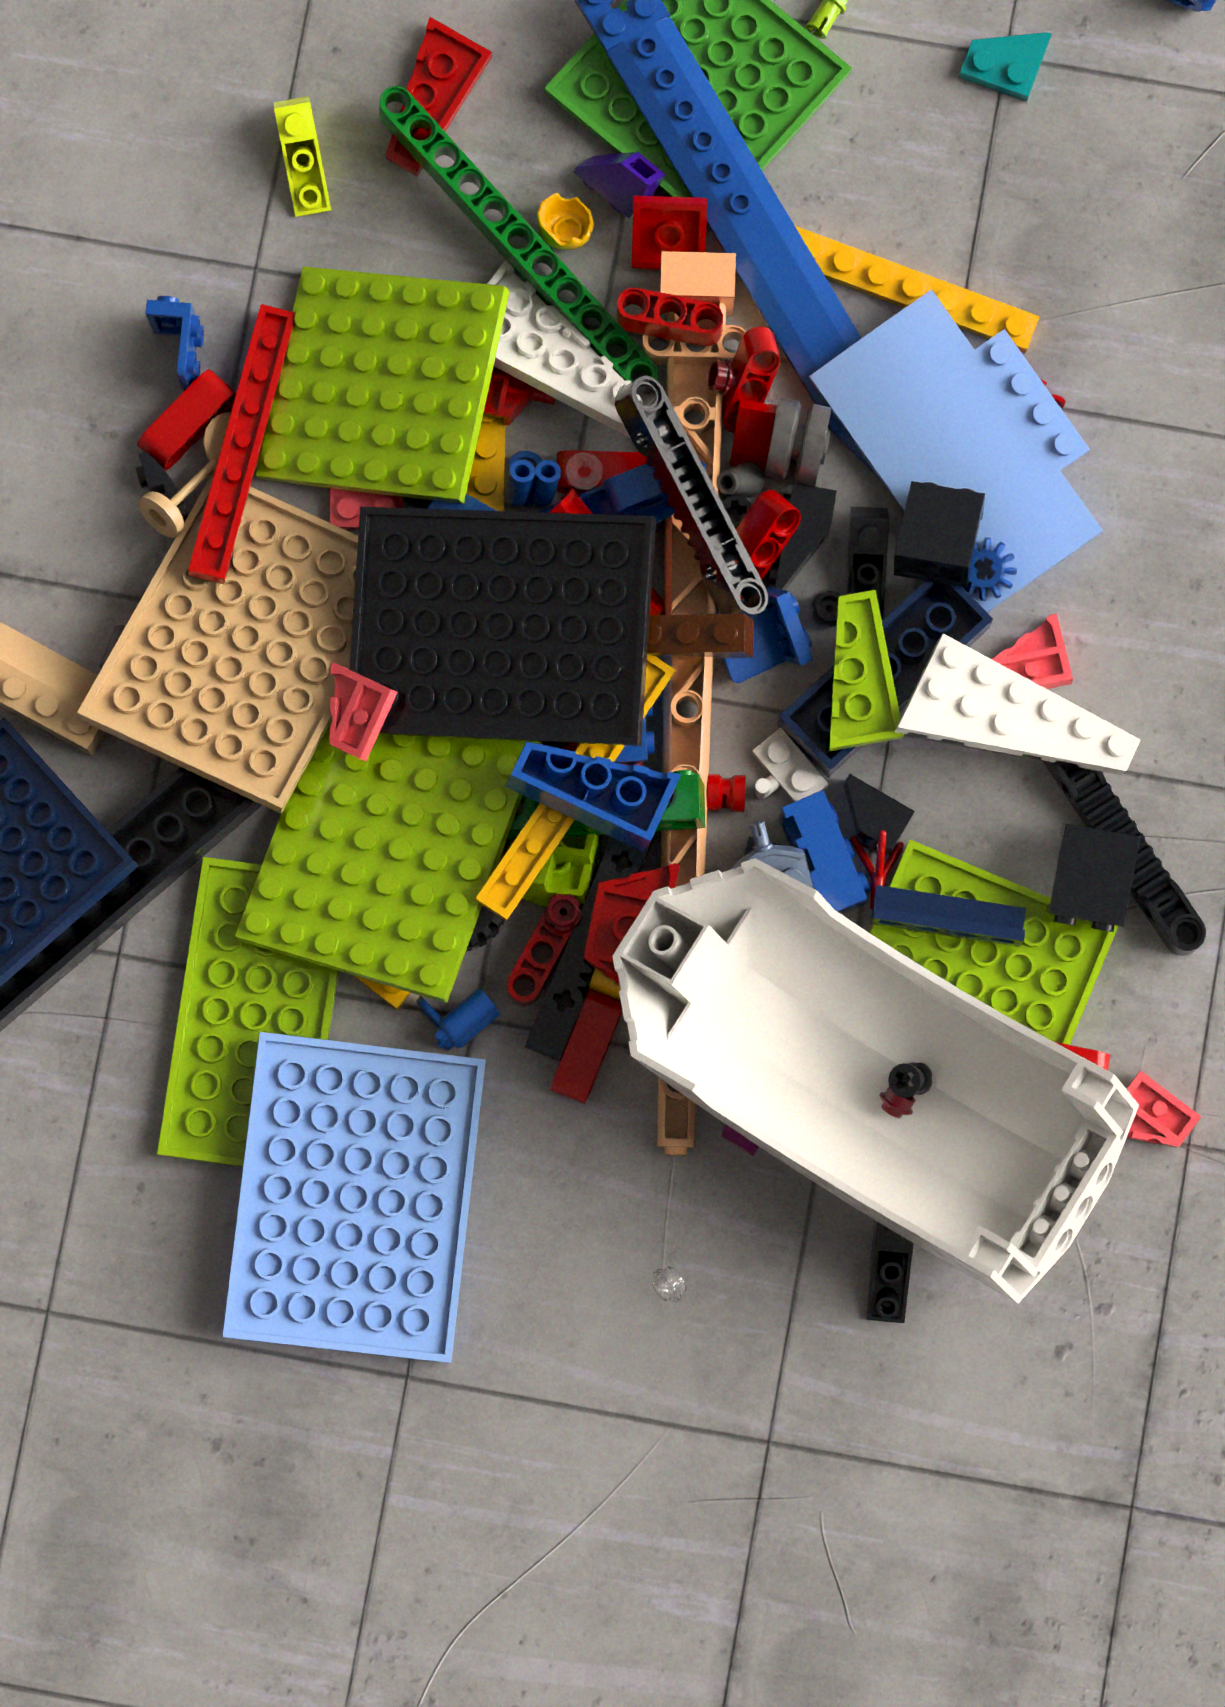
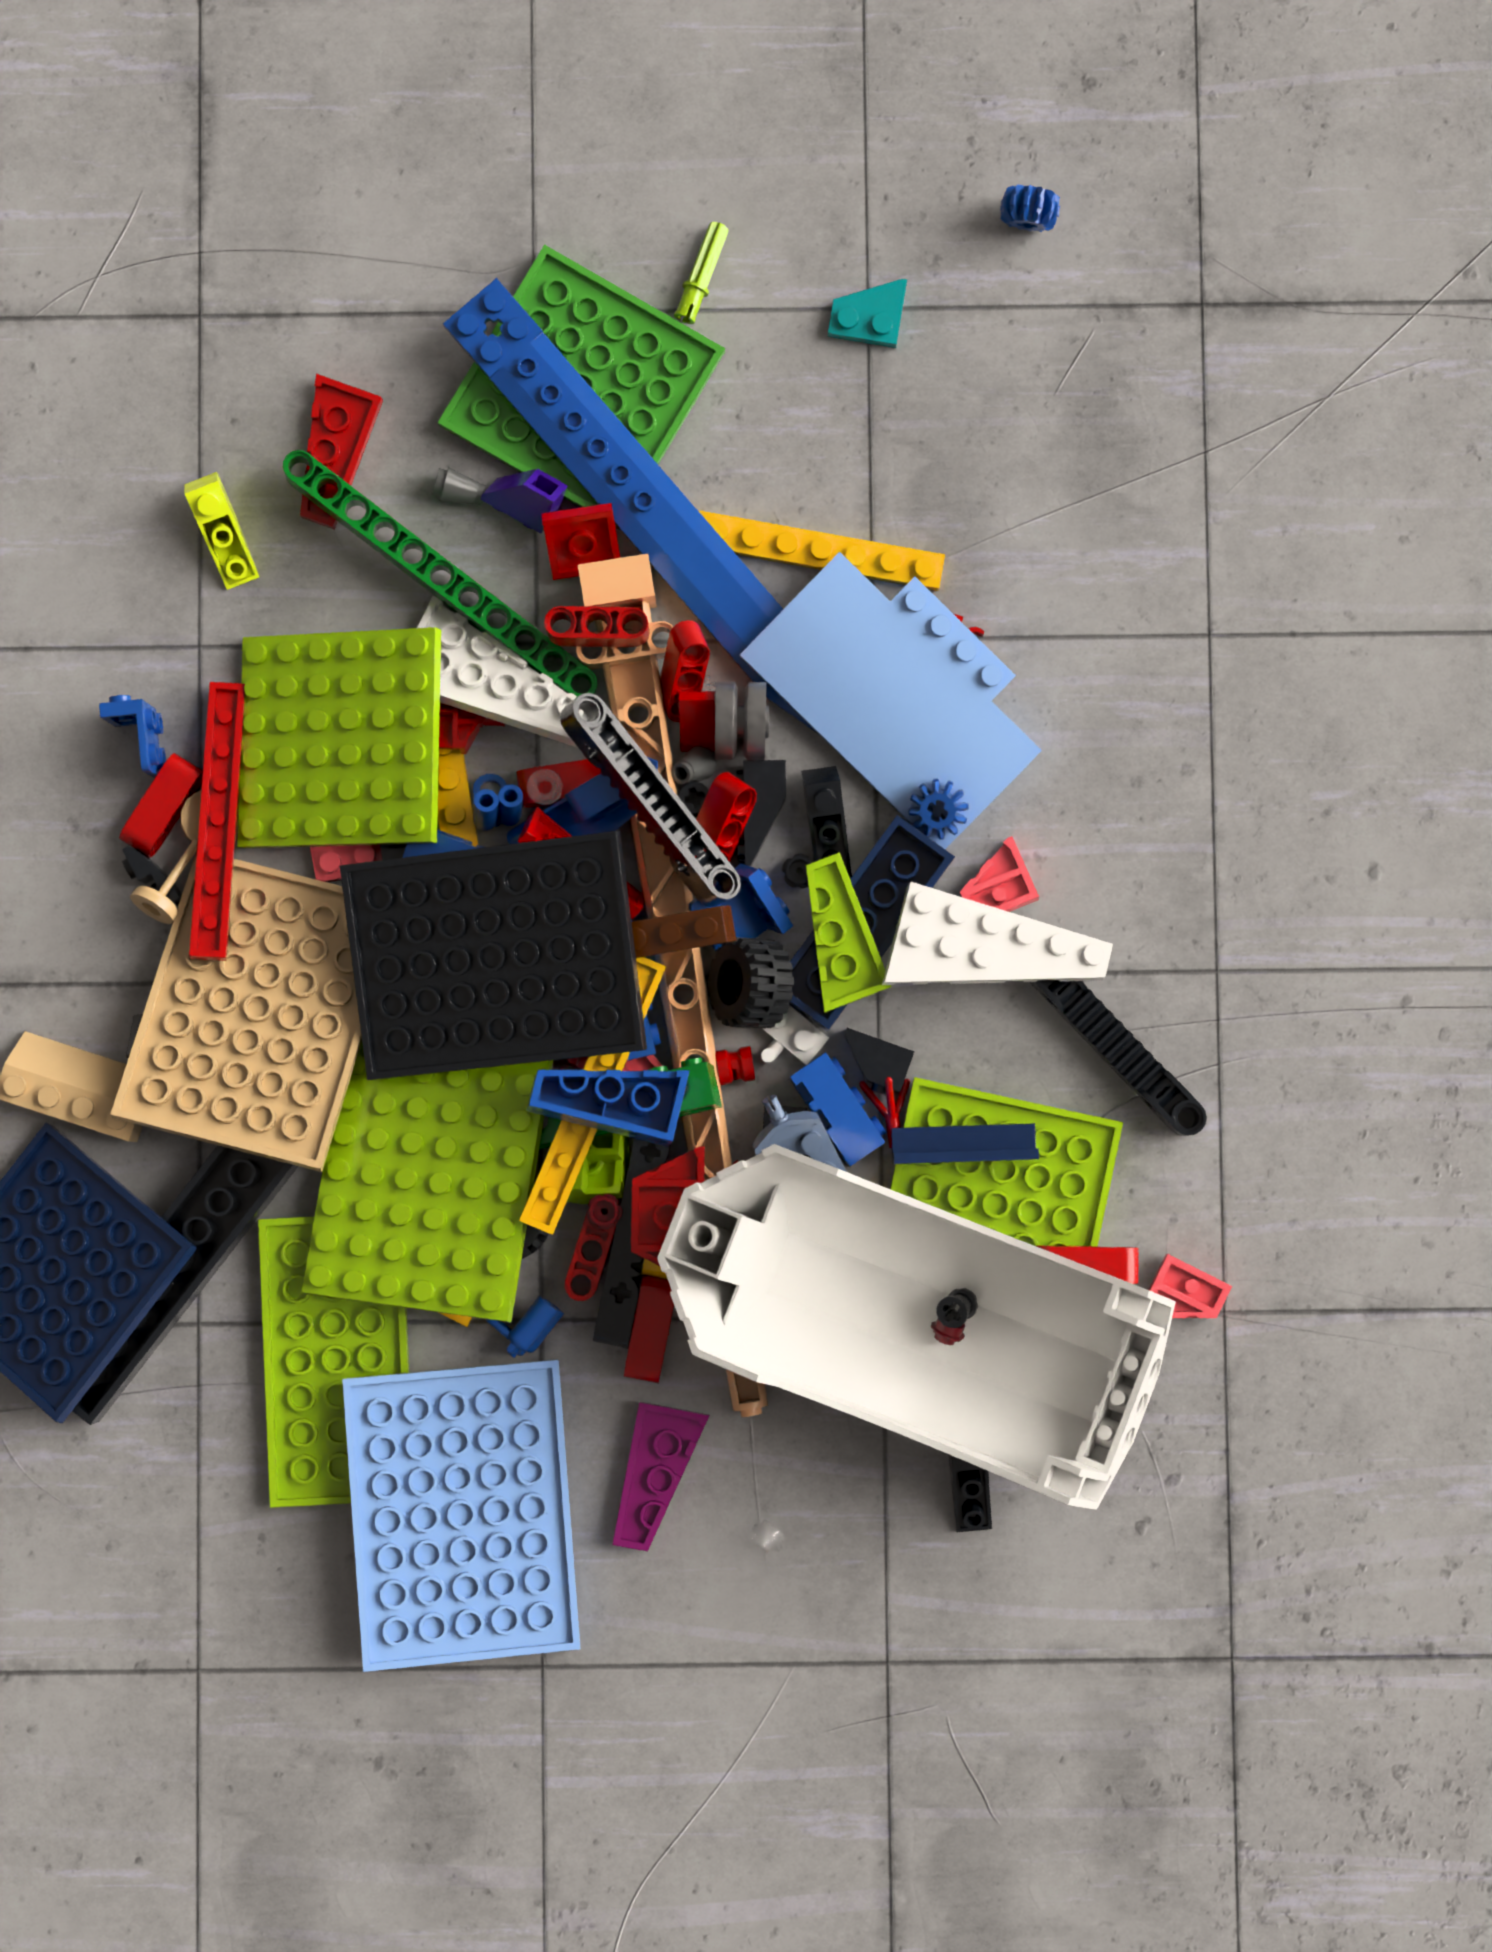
camera: 10 degrees left, 5 degrees up
(357, 711) = (374, 1061): coral wing -> none
(551, 157) = (457, 488): none -> dark grey cone
(564, 222) = (481, 549): yellow hair -> none
(567, 1185) = (656, 1462): none -> magenta wing
(722, 377) = (657, 674): dark red plate -> none
(758, 707) = (750, 983): none -> black tyre
(938, 534) = (889, 785): black panel -> none
(1093, 876) = (1092, 1083): black panel -> none

